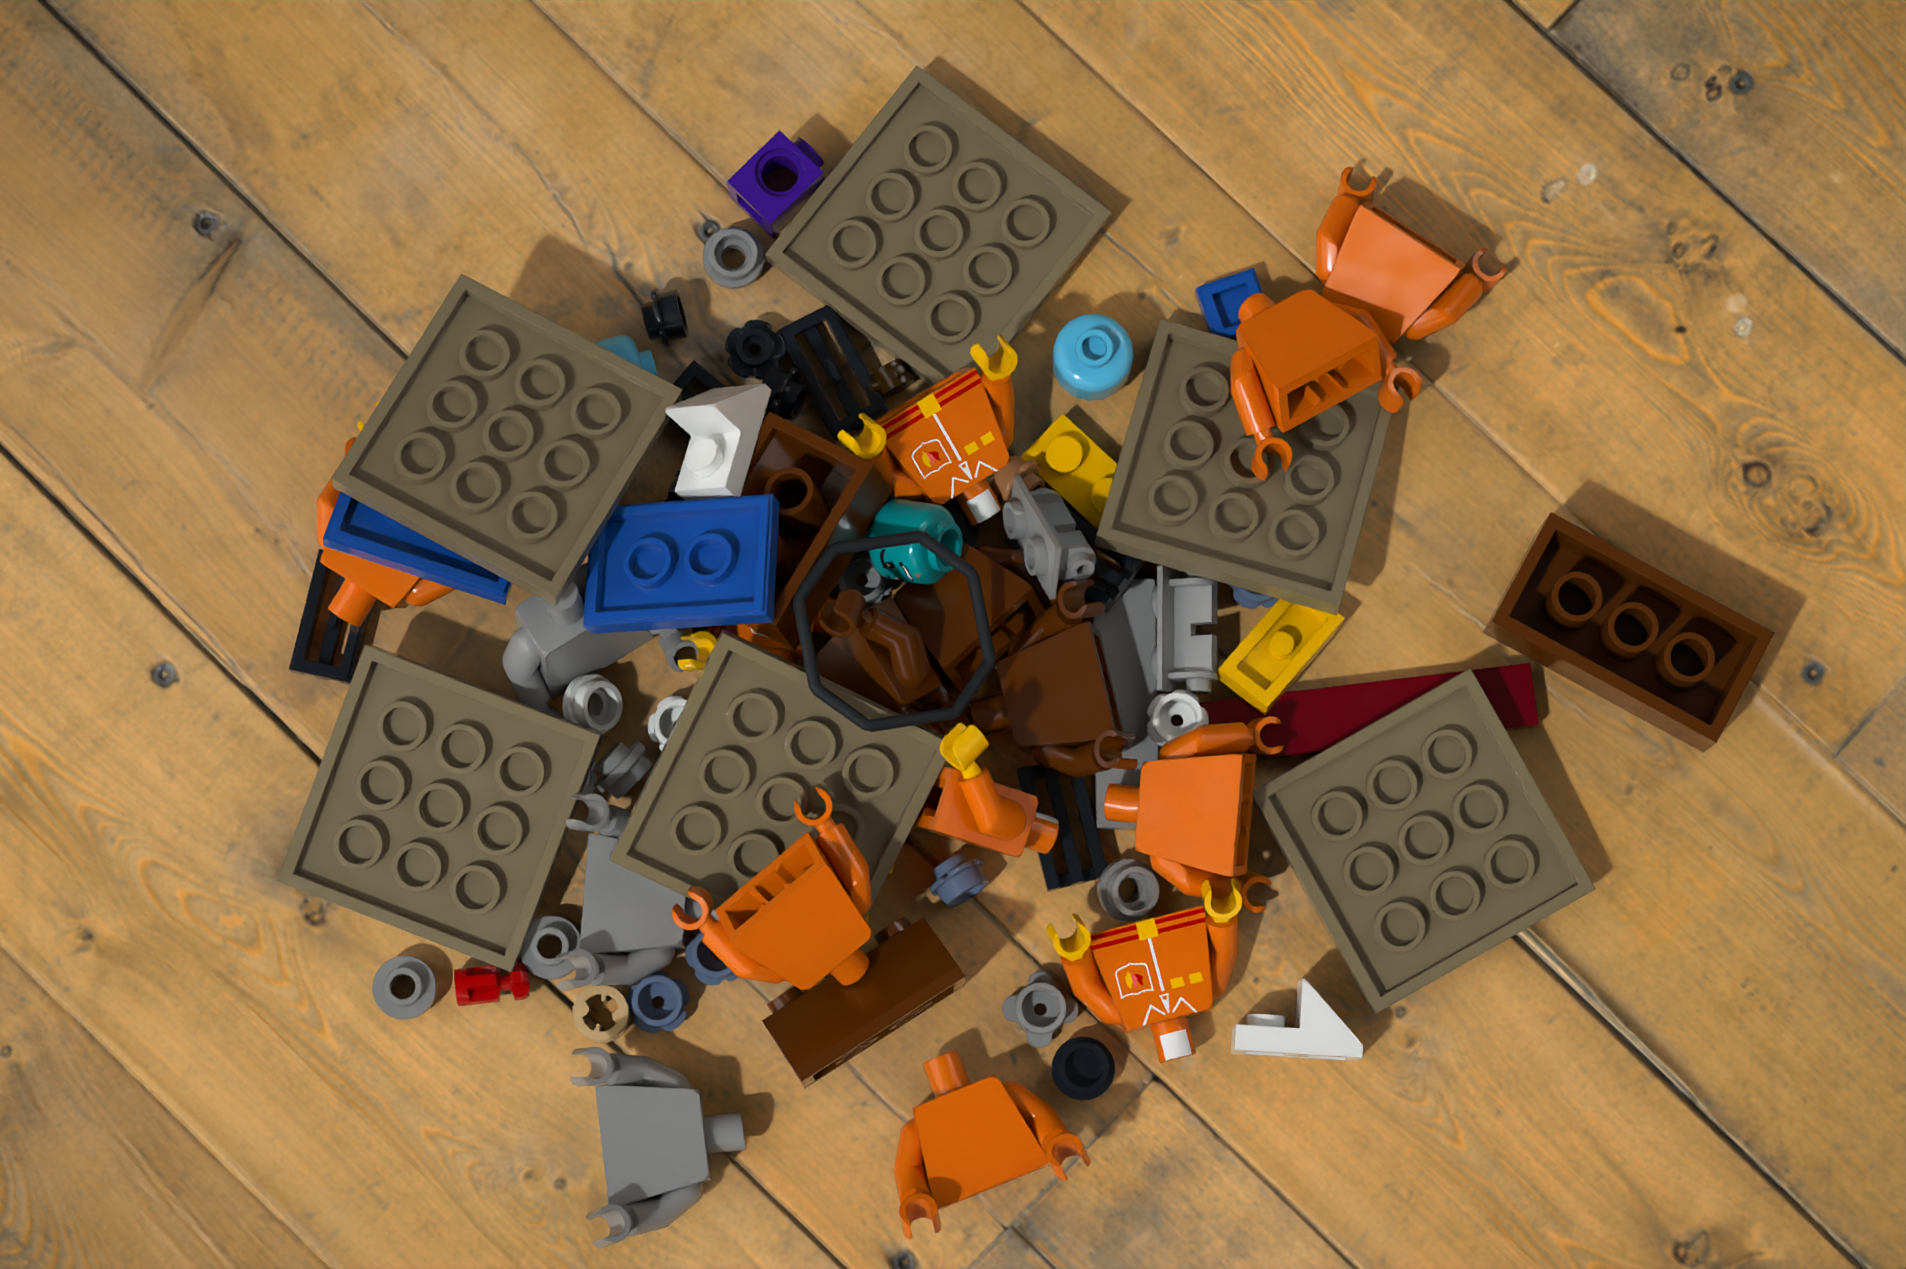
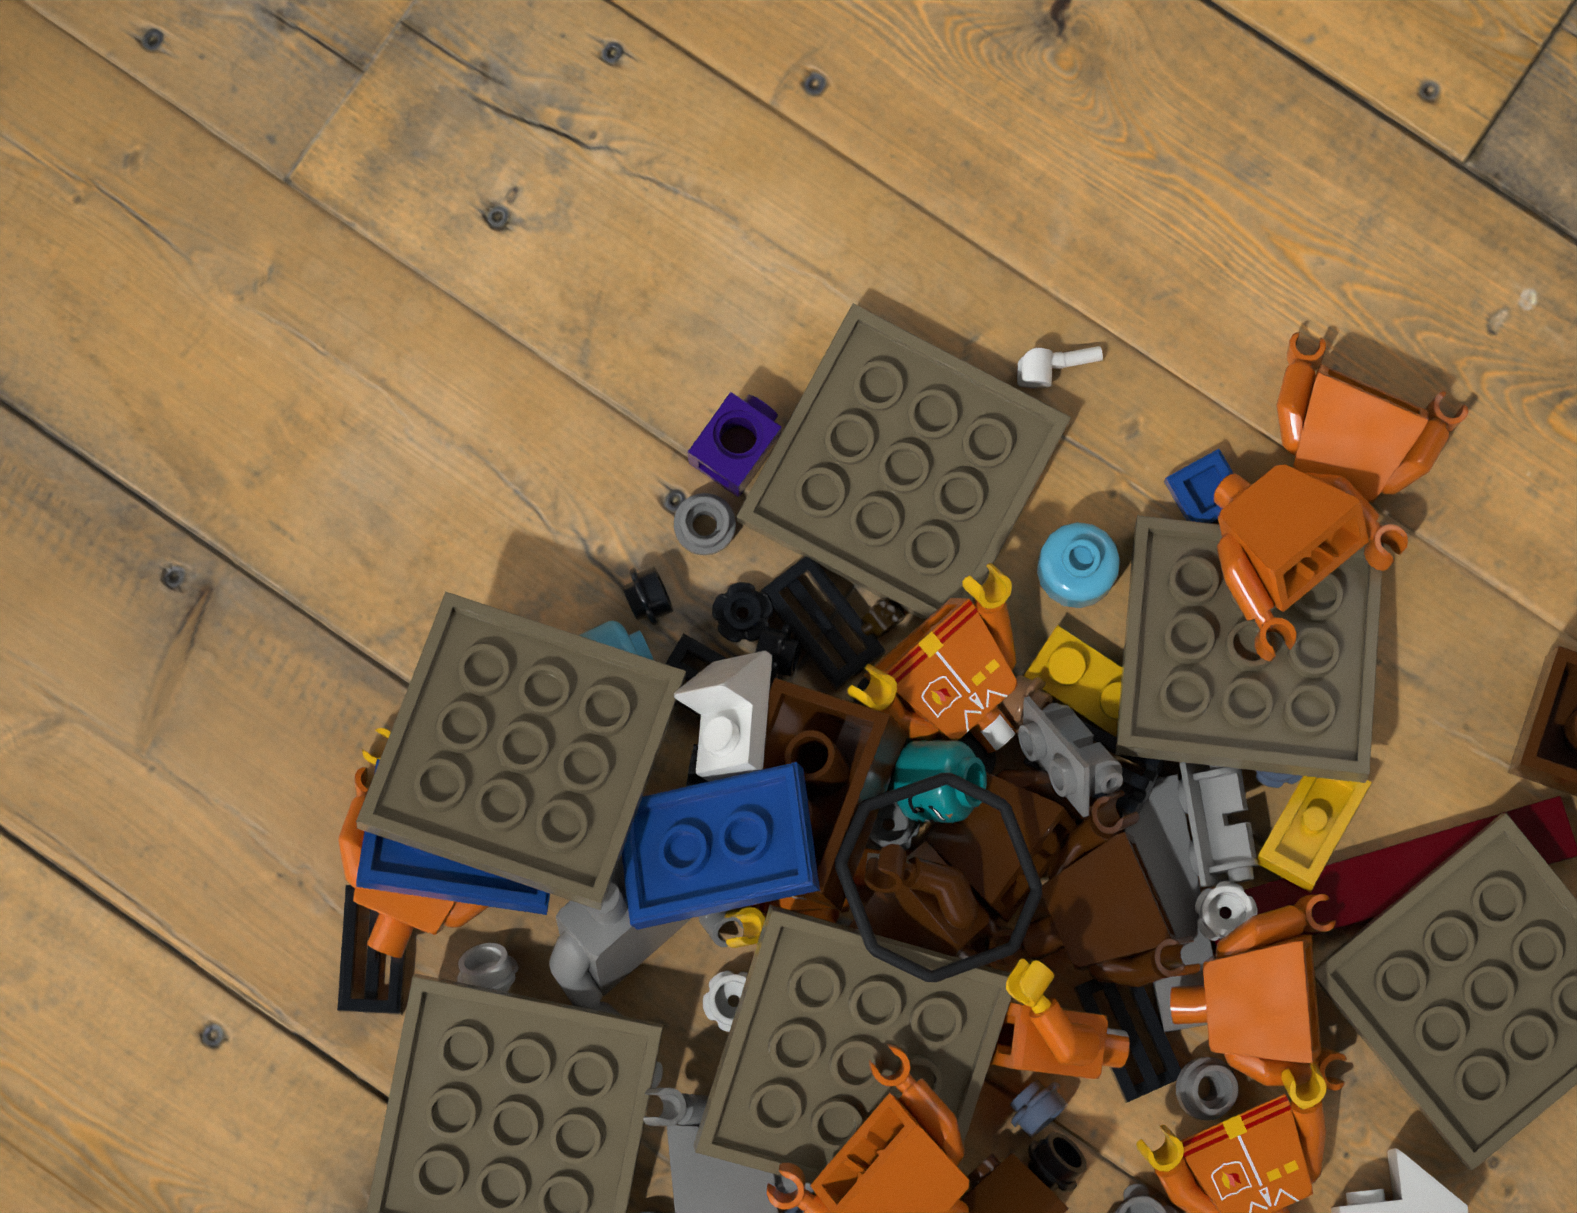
camera: 10 degrees left, 0 degrees up
(443, 651) = (487, 967): none -> white plate
(604, 700) = (645, 993): white plate -> none
(621, 768) = (685, 1053): light grey plate -> none
(967, 936) = (1056, 1161): none -> black plate
(1089, 155) = (1037, 364): none -> white hand

